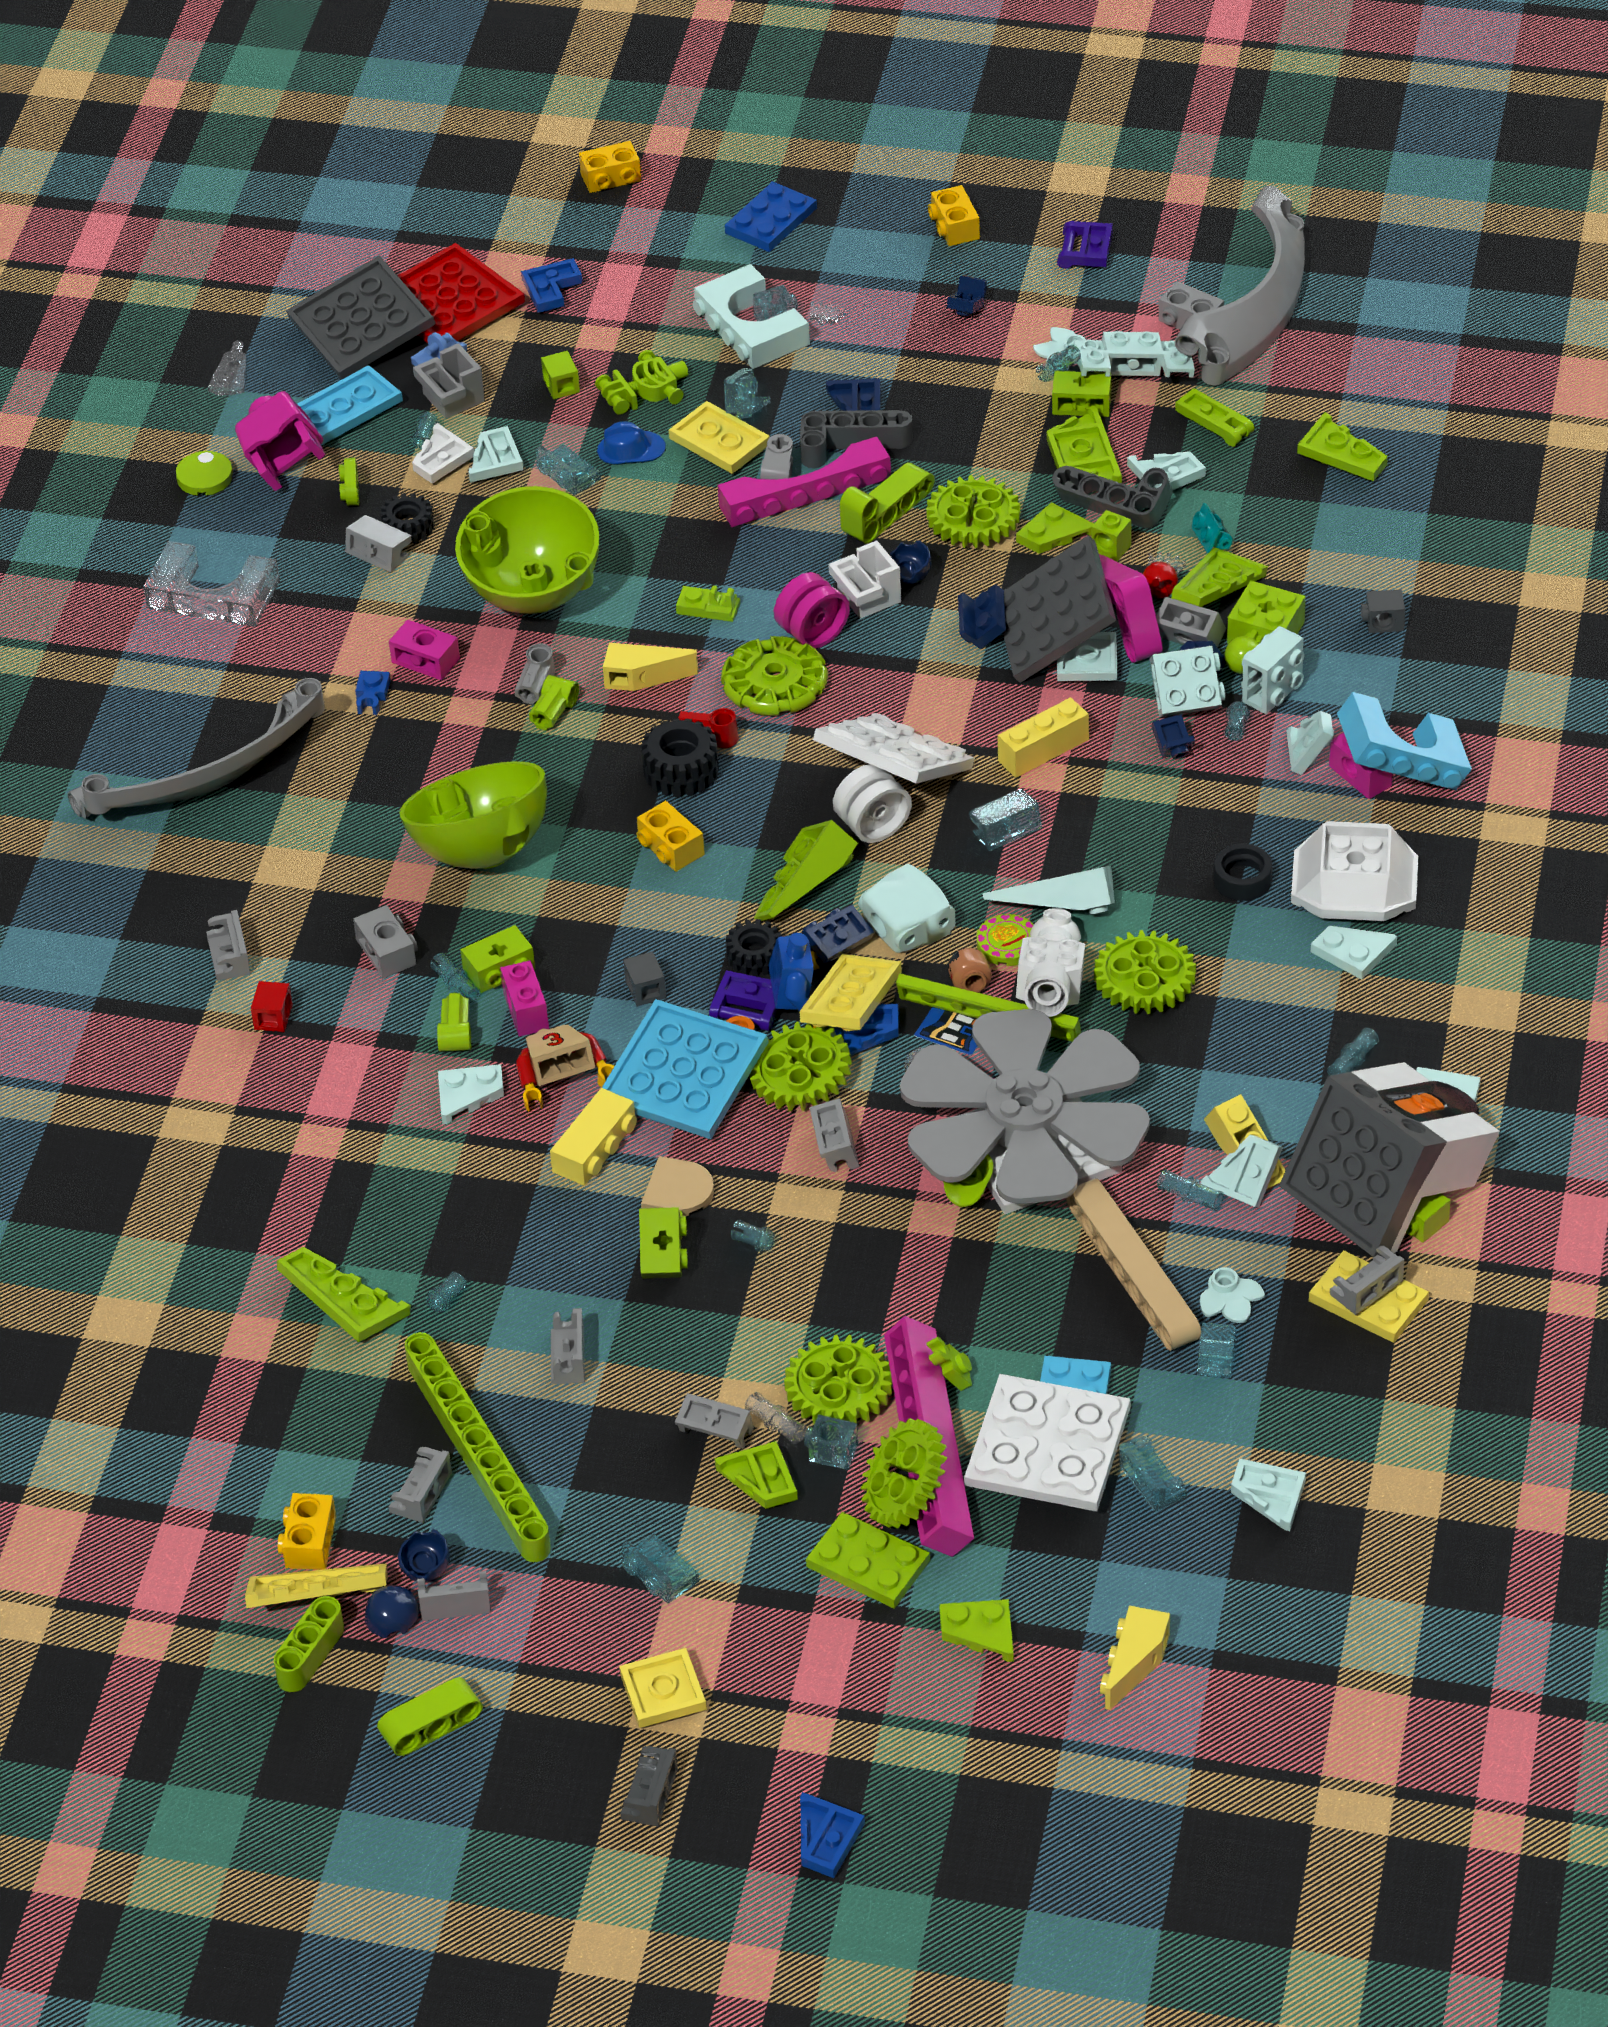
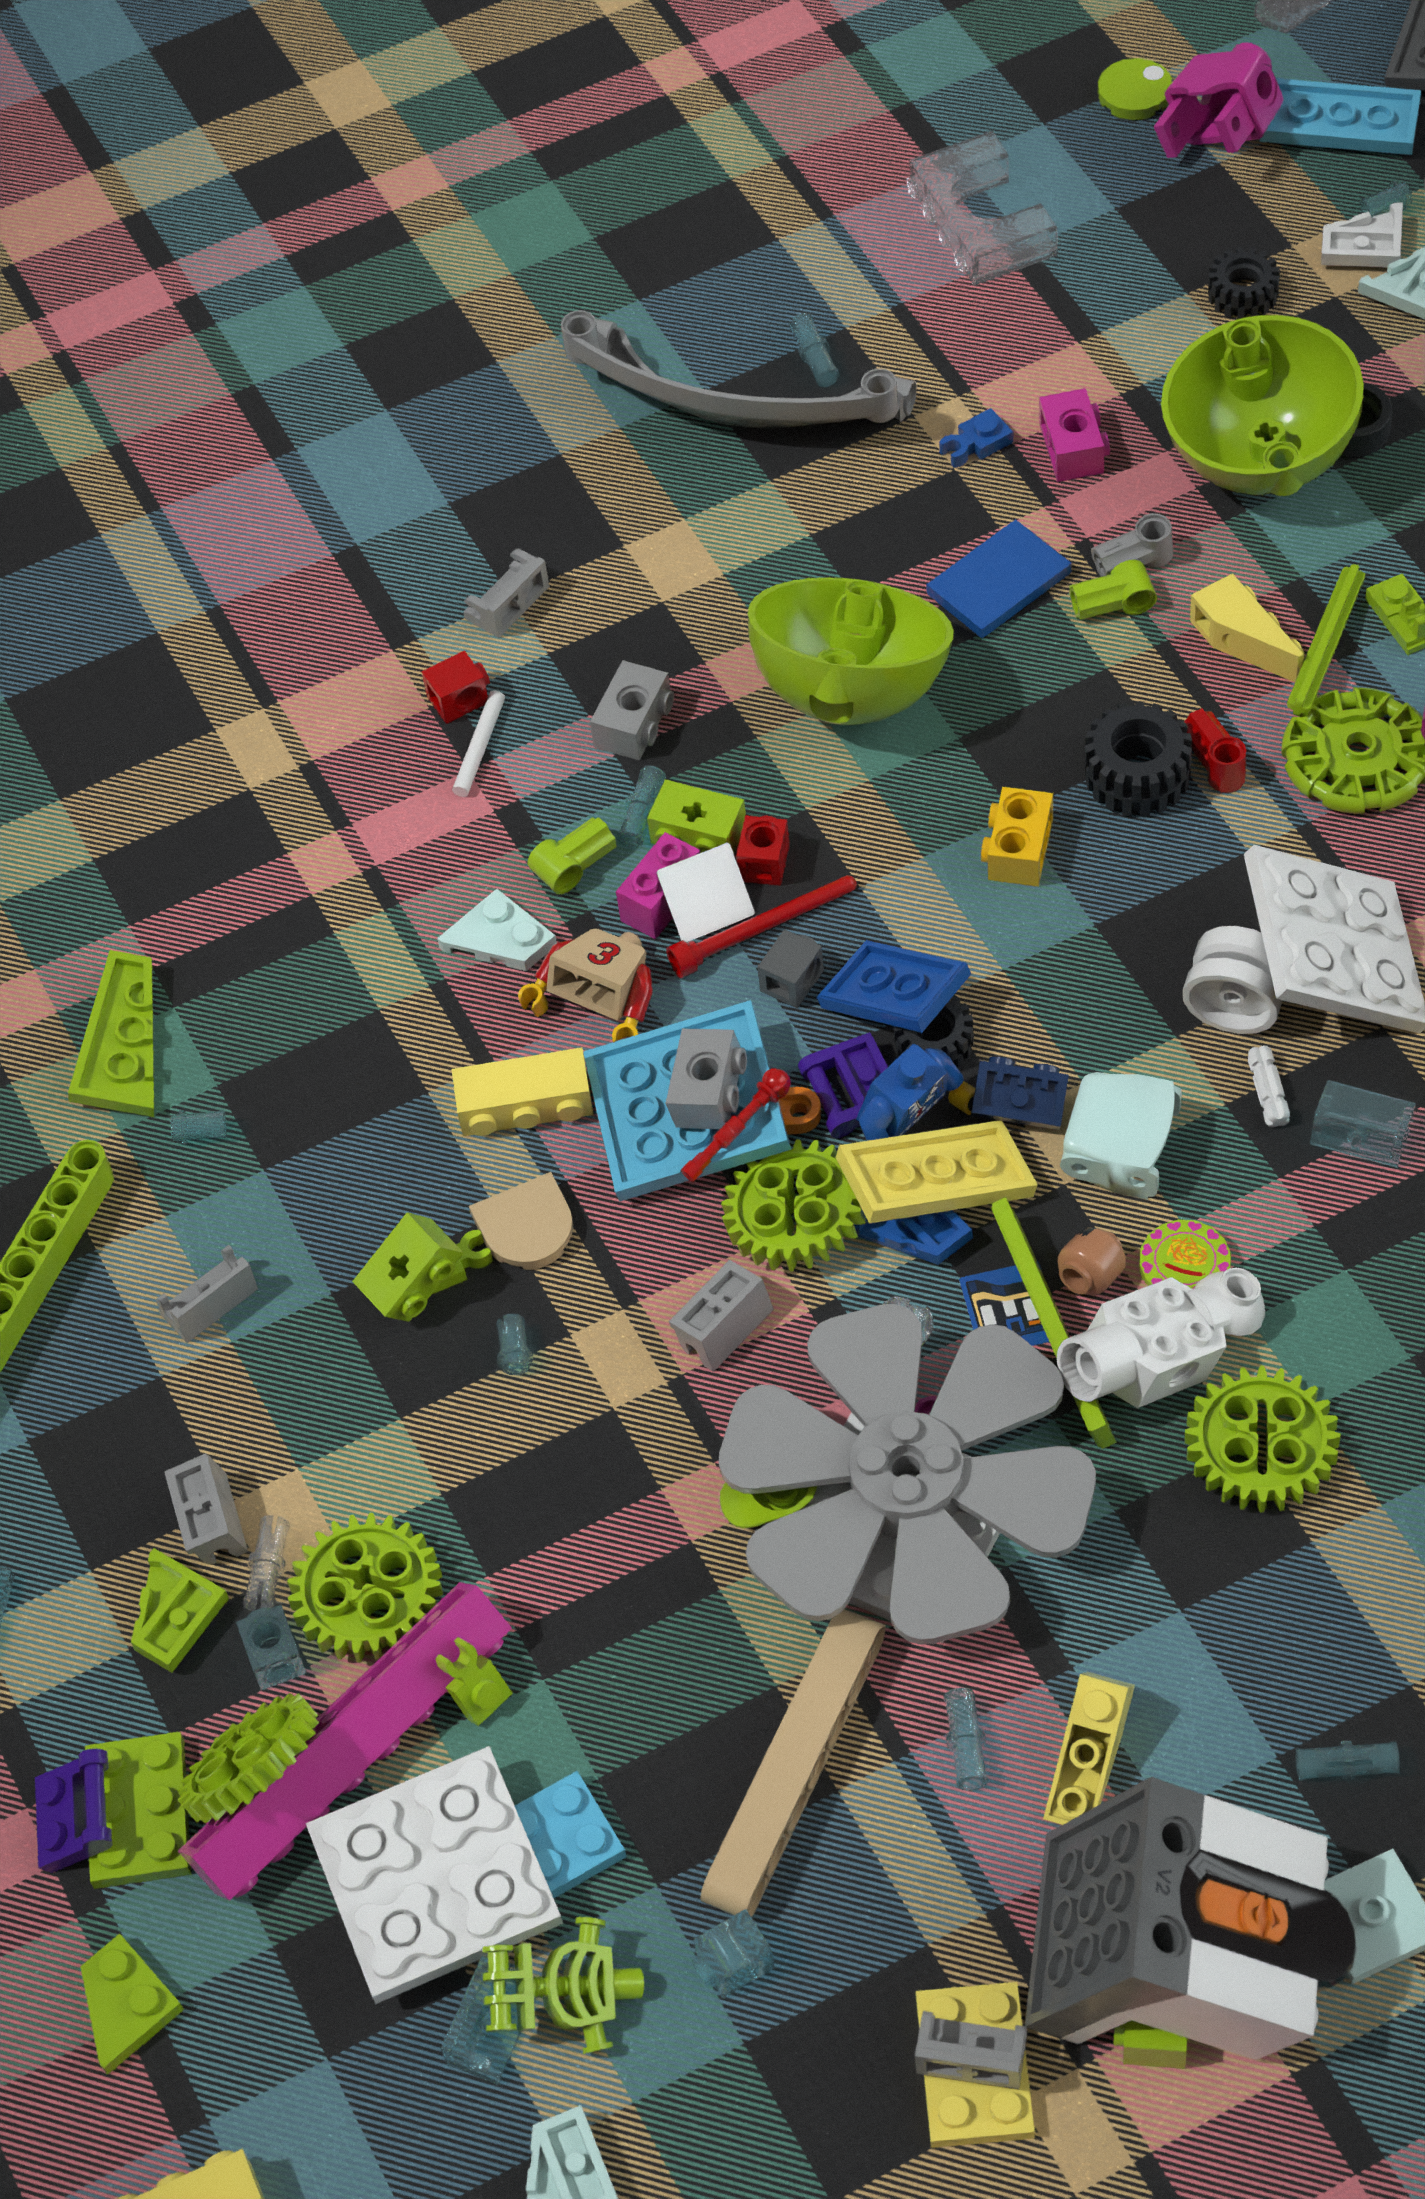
camera: 55 degrees right, 10 degrees up
(220, 715) = (814, 350): none -> clear light blue pin
(320, 1023) = (478, 743): none -> white bar
(349, 490) = (1243, 201): lime plate -> none
(377, 543) = (1182, 285): light grey hinge -> none
(480, 737) = (998, 578): none -> blue tile
(552, 943) = (763, 849): none -> red brick
(556, 979) = (705, 892): none -> white sticker
(583, 1017) = (687, 956): none -> red piece
(691, 639) = (1325, 640): none -> lime axle
(691, 1041) = (699, 1057): none -> light grey brick
(710, 940) = (894, 986): none -> blue tile
(730, 1019) = (773, 1087): none -> red piece
(810, 860) = (1119, 991): lime wedge -> none
(841, 1590) = (72, 1811): none -> dark purple plate
(939, 841) = (1268, 1086): none -> white axle
(1074, 891) = (1312, 1277): light aqua wedge -> none
(1167, 1423) = (598, 1986): none -> lime piece
(1230, 1295) = (836, 1911): light aqua plate -> none
(1246, 1171) = (1035, 1781): light aqua wing -> none

